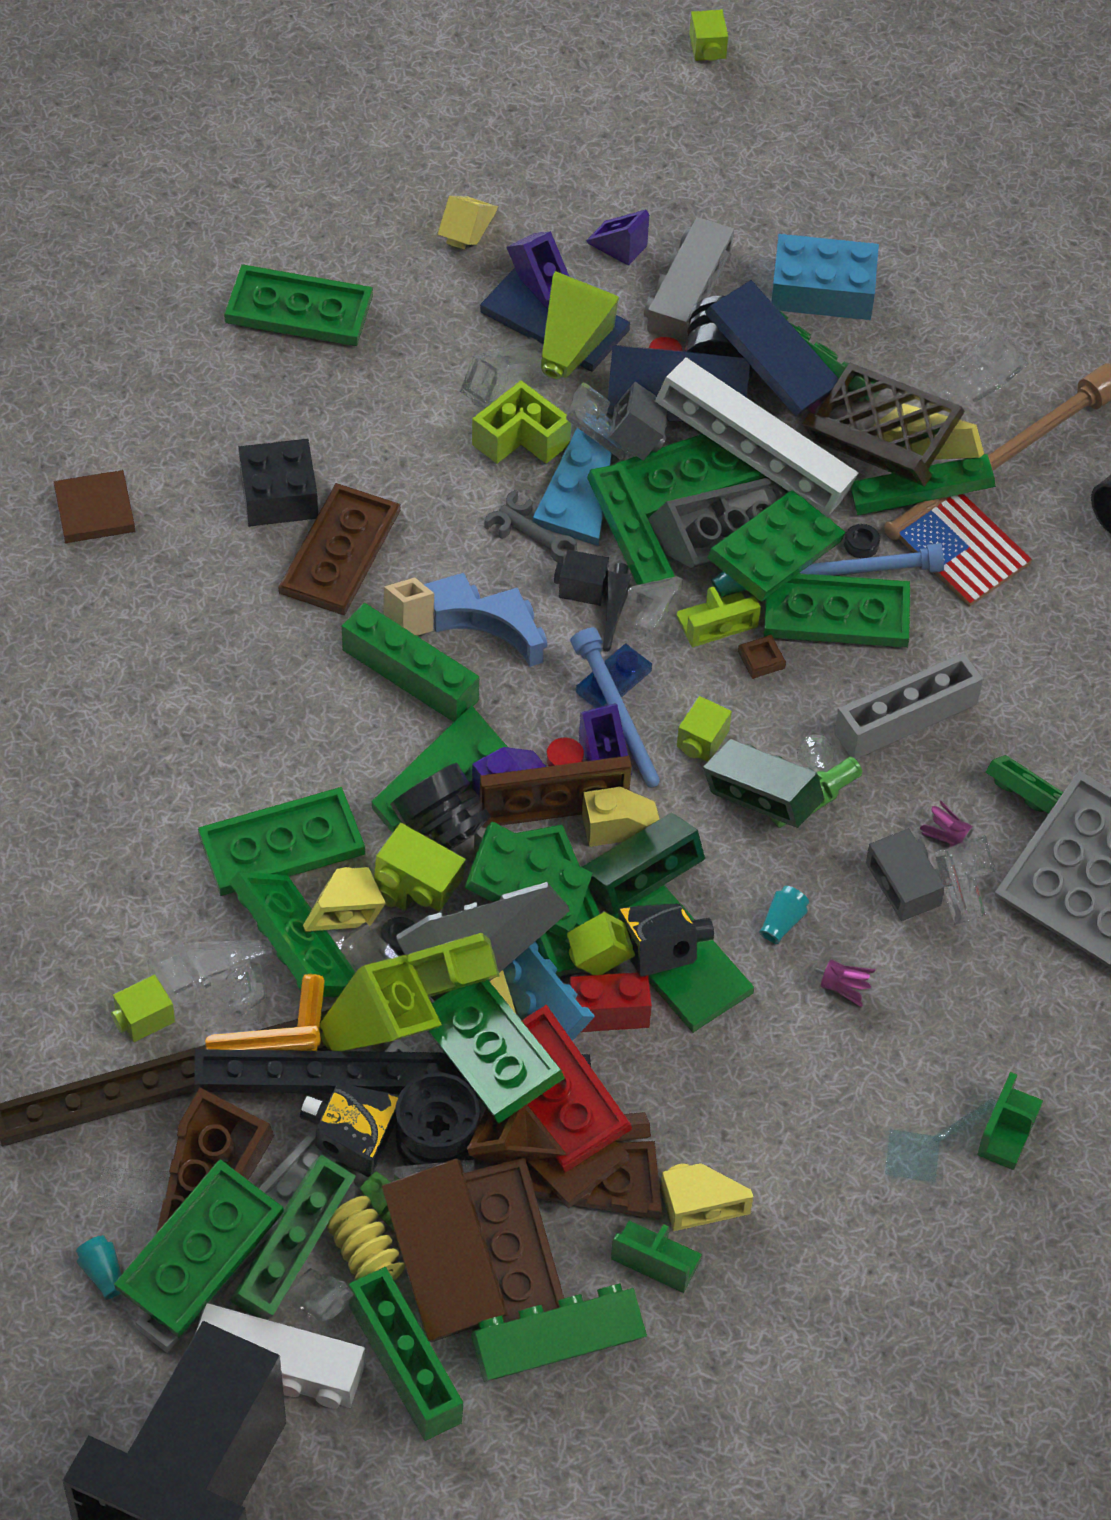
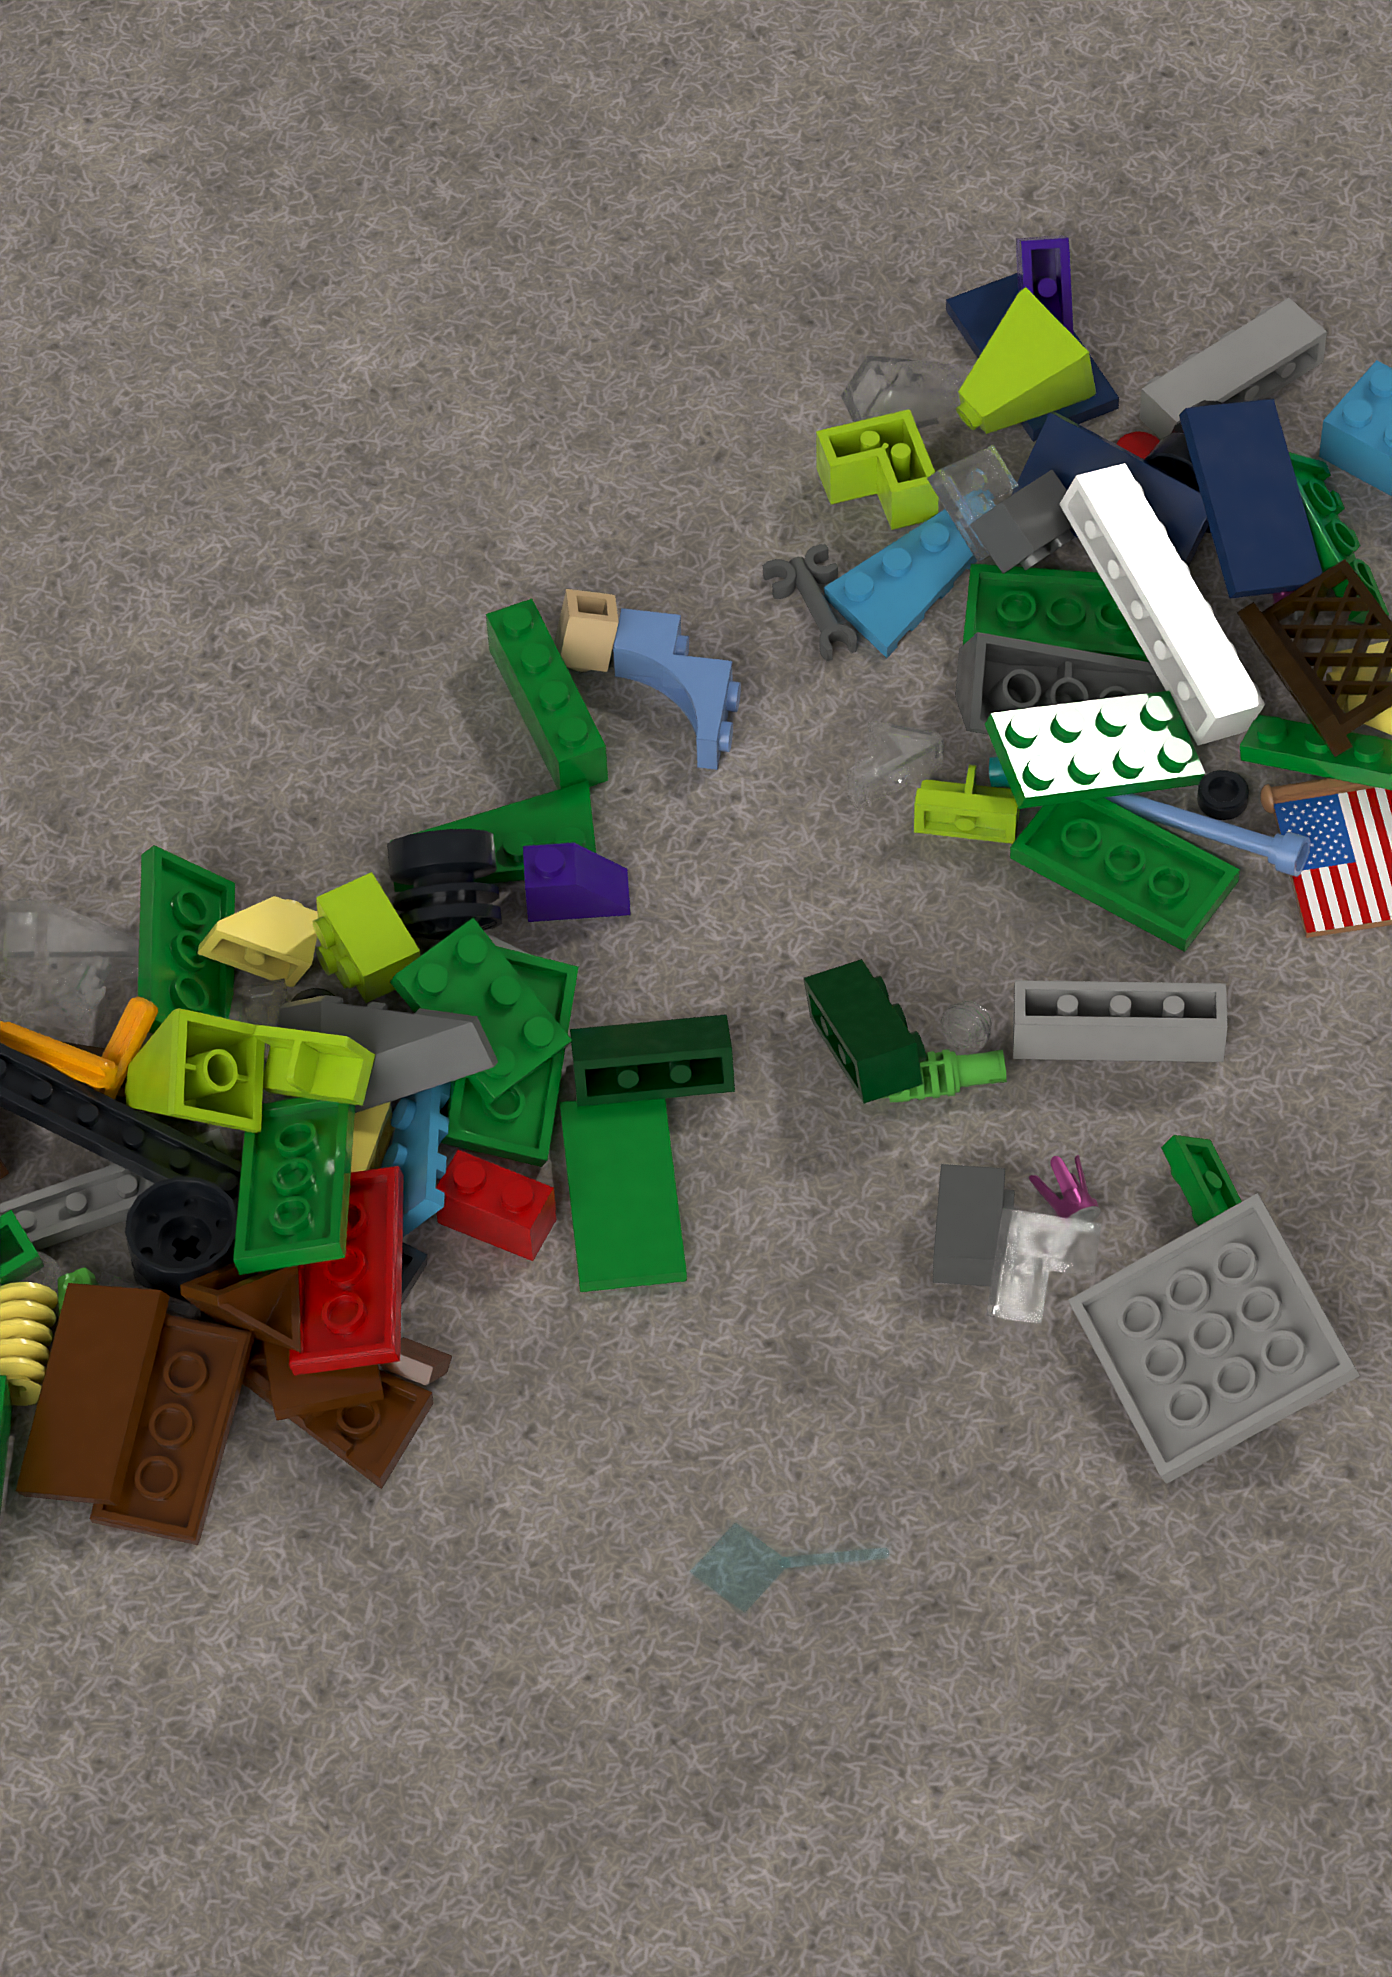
camera: 35 degrees right, 0 degrees up
(94, 506) = (317, 354): reddish brown tile -> none
(278, 482) = (543, 414): black brick -> none
(283, 838) = (259, 836): green plate -> none
(299, 305) = (723, 211): green plate -> none
(339, 549) = (568, 526): reddish brown tile -> none
(353, 1125) = (86, 1199): torso -> none
(465, 220) = (1000, 186): light yellow slope -> none
(549, 790) = (601, 925): reddish brown tile -> none
(557, 1334) = (158, 1555): green brick -> none
(564, 751) = (660, 892): red tile -> none
(582, 577) = (831, 686): black brick -> none
(588, 645) = (766, 766): medium blue piece -> none
(600, 944) = (514, 1126): lime brick -> none
(602, 733) = (710, 897): dark purple slope -> none
(615, 815) = (663, 986): light yellow slope -> none
(617, 591) = (852, 733): black piece -> none
(622, 236) = (1186, 289): dark purple slope -> none
(626, 669) = (787, 826): clear blue plate -> none
(629, 524) = (933, 645): green plate -> none
(655, 1255) = (343, 1526): green panel -> none
(663, 936) = (600, 1154): black torso -> none
(702, 1196) = (440, 1485): light yellow slope -> none
(703, 729) = (845, 933): lime brick -> none
(761, 656) = (990, 881): reddish brown tile -> none
(784, 913) = (785, 1202): teal cone -> none
(844, 978) = (796, 1305): flat silver piece -> none
(1009, 1125) = (879, 1584): green panel -> none

